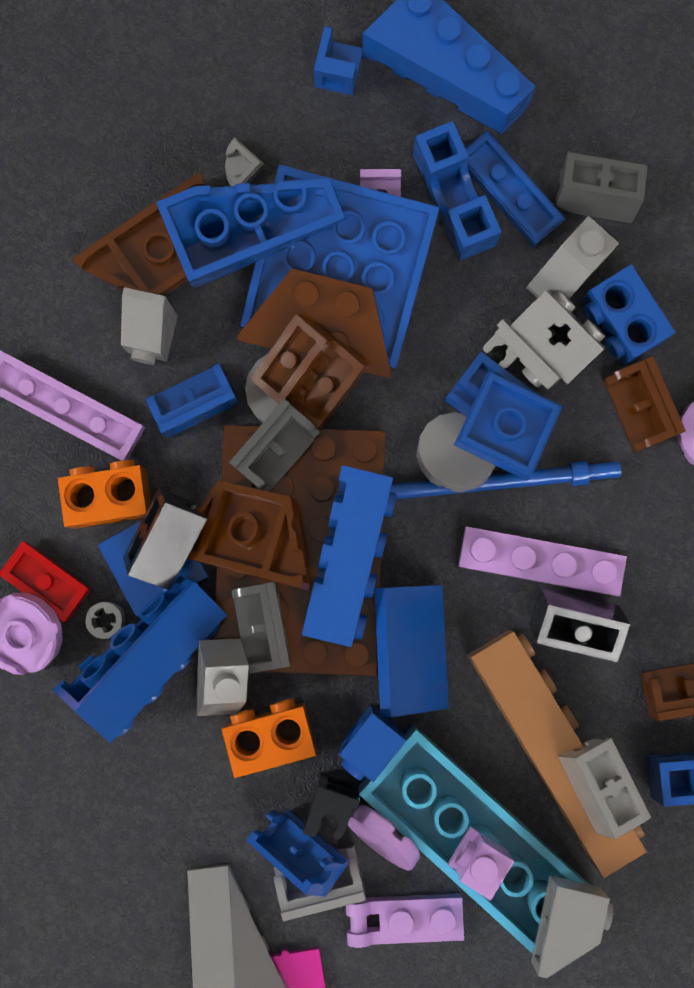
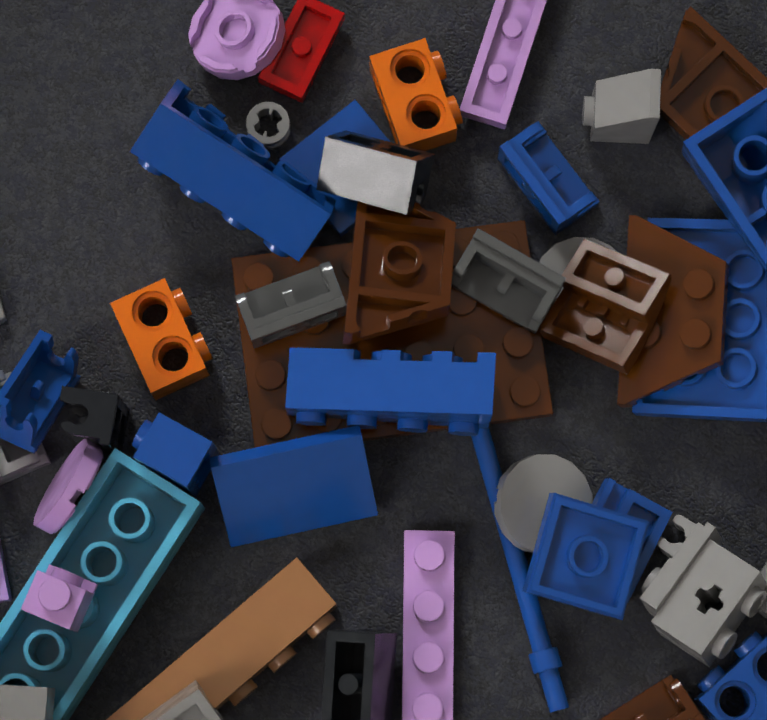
camera: 80 degrees right, 5 degrees down
(221, 677) = (223, 266): light grey slope -> none

